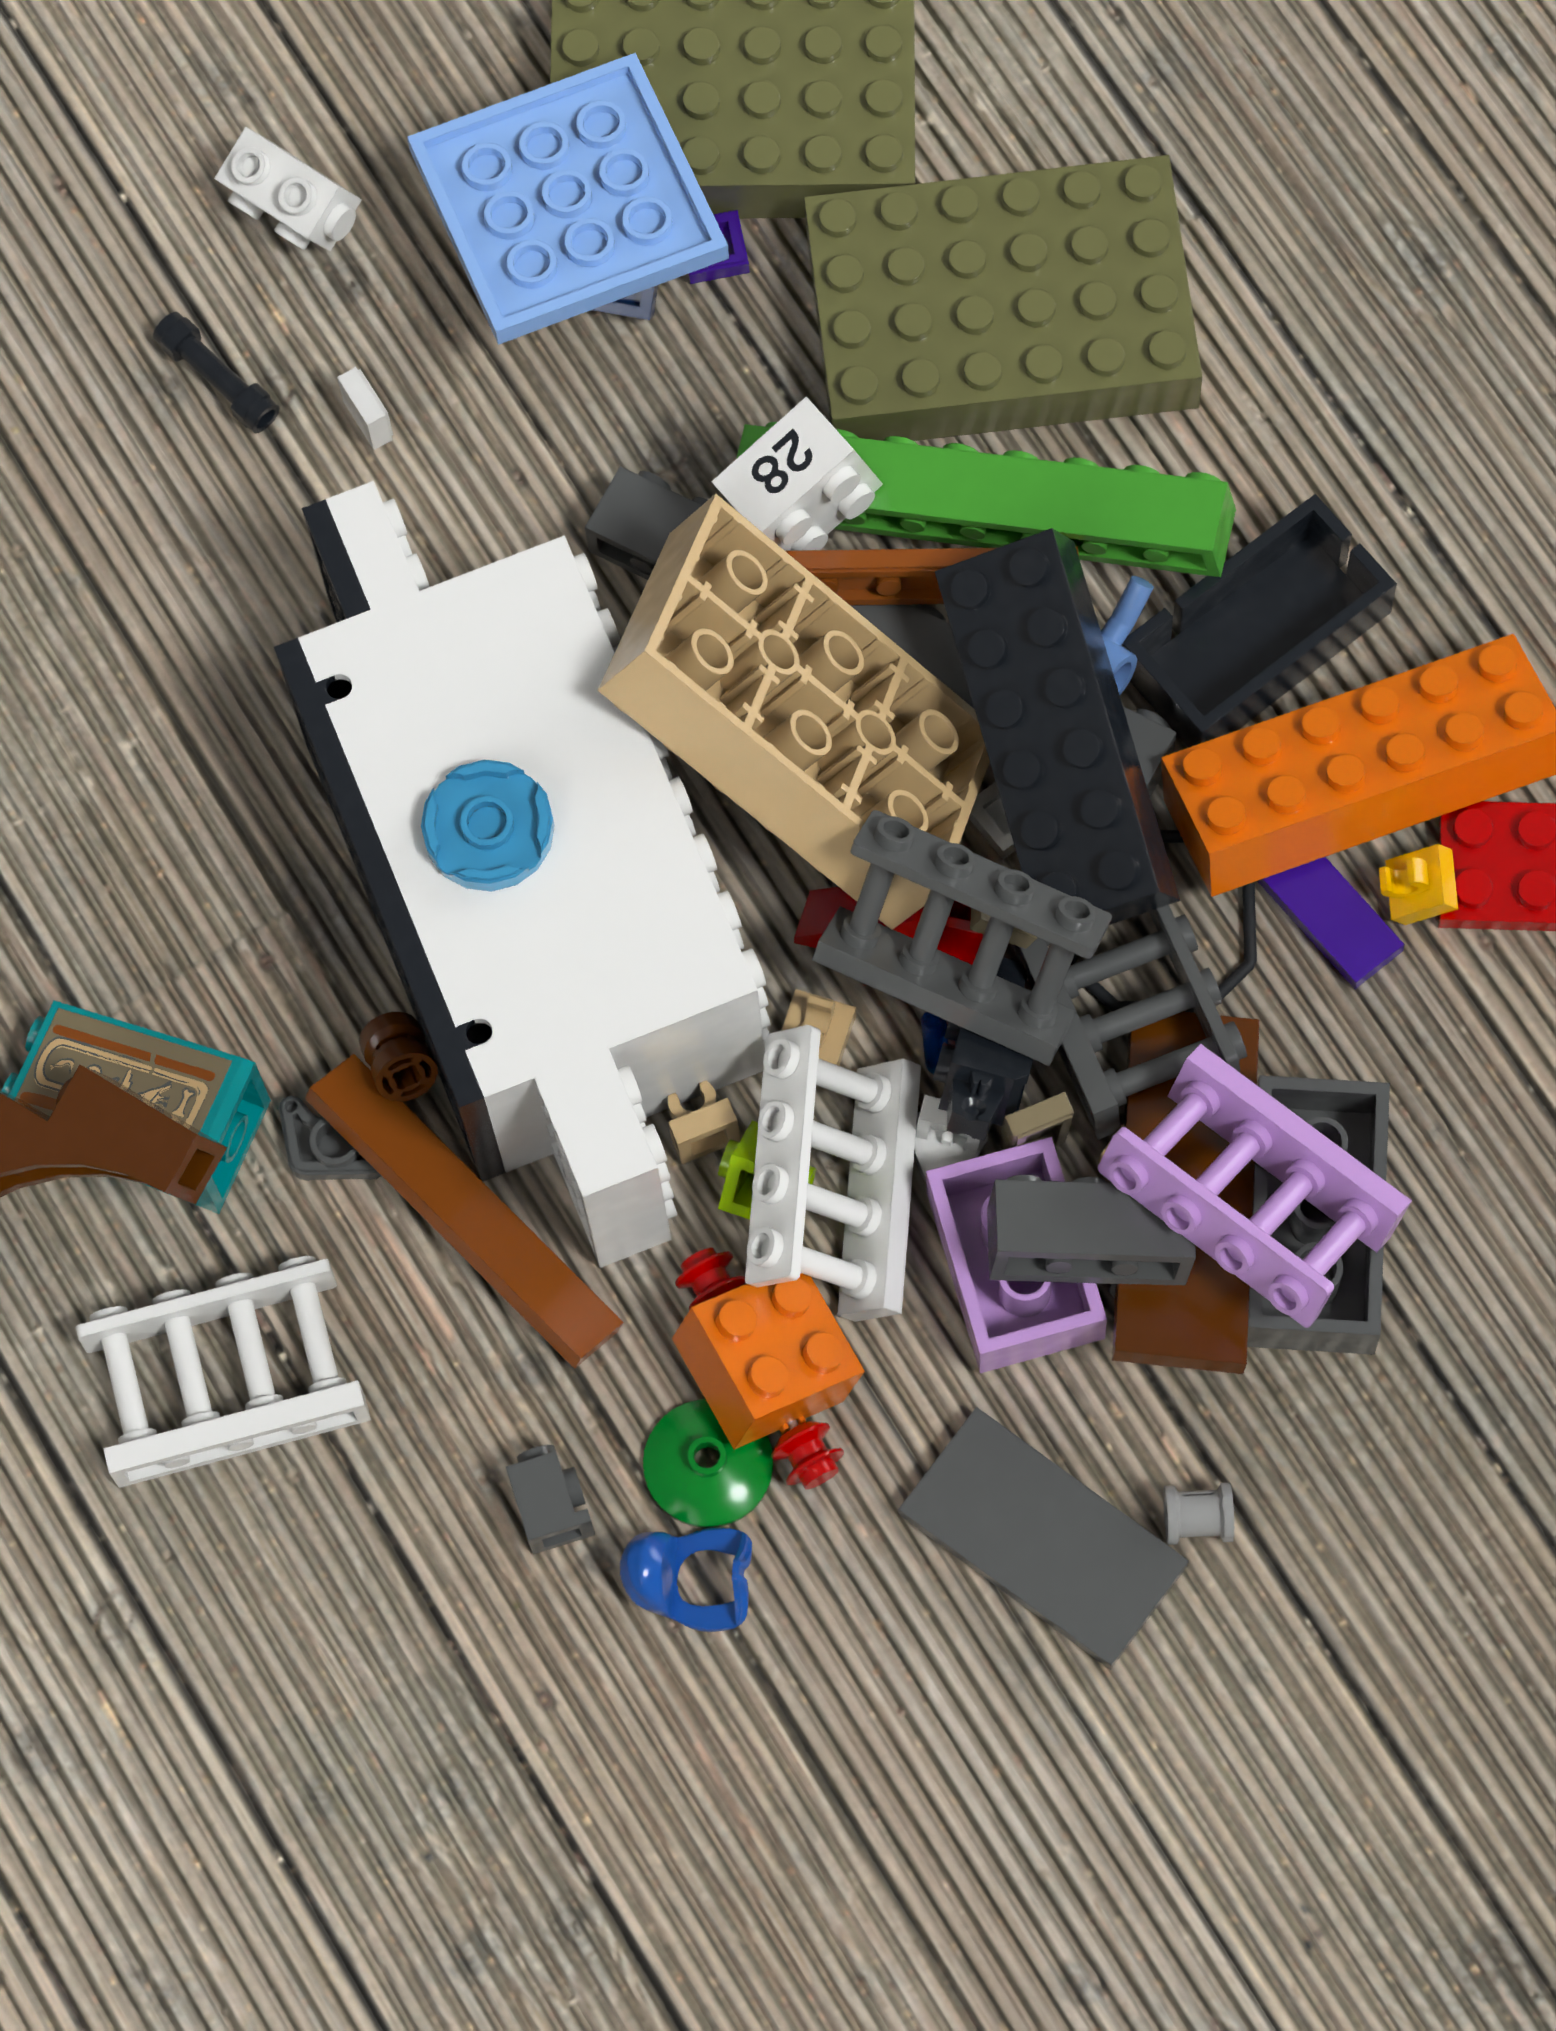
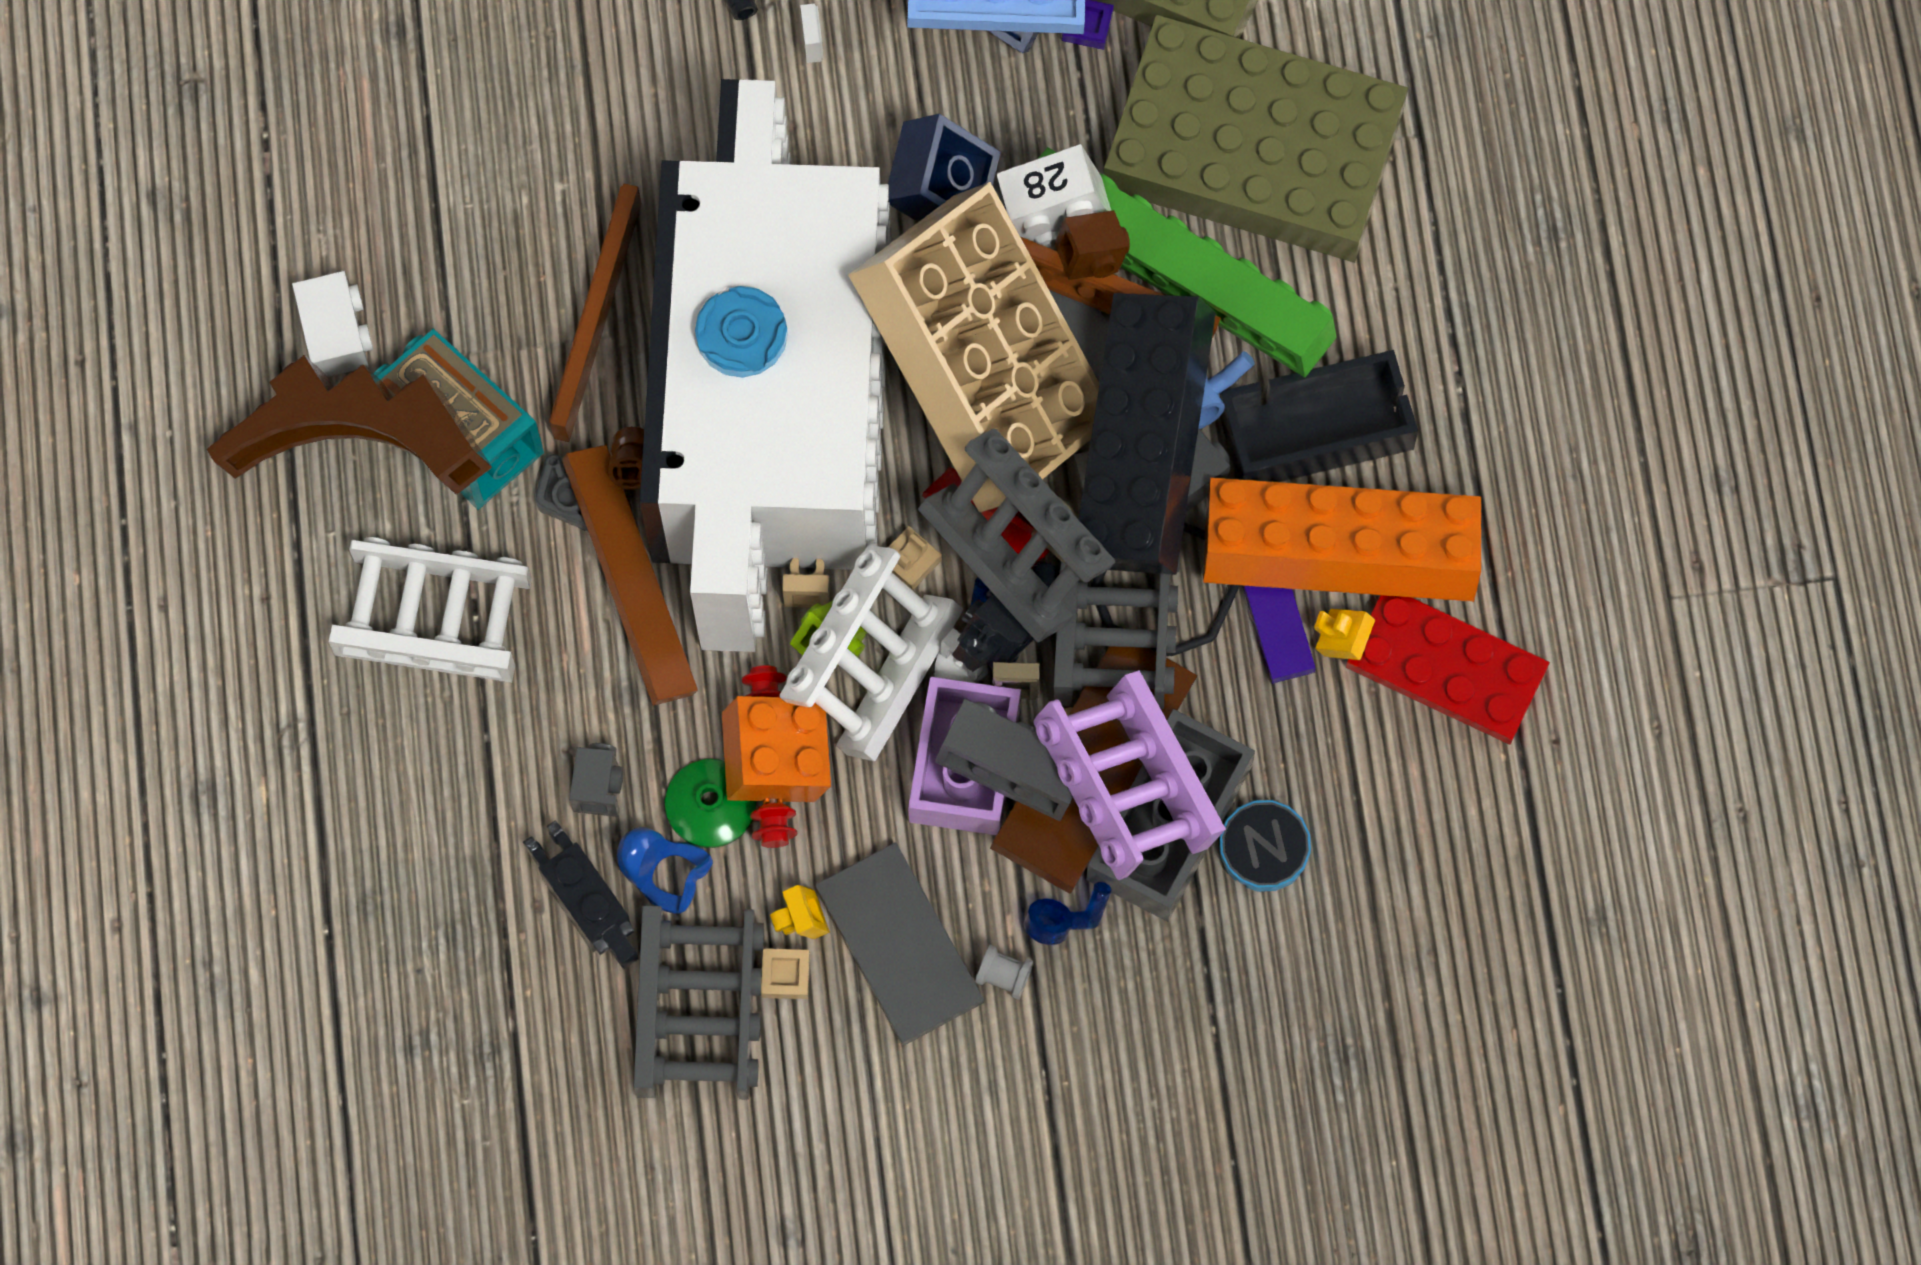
camera: 20 degrees right, 0 degrees up
(255, 889) = (595, 312): none -> dark orange tile
(607, 1660) = (584, 897): none -> black hinge
(621, 505) = (936, 163): none -> dark blue slope
(781, 1786) = (658, 979): none -> dark grey fence
(875, 522) = (1092, 245): none -> reddish brown brick
(900, 1556) = (801, 914): none -> yellow tile
(916, 1643) = (785, 973): none -> tan plate
(1227, 1420) = (1051, 920): none -> clear blue plate
(1457, 1202) = (1265, 845): none -> black tile

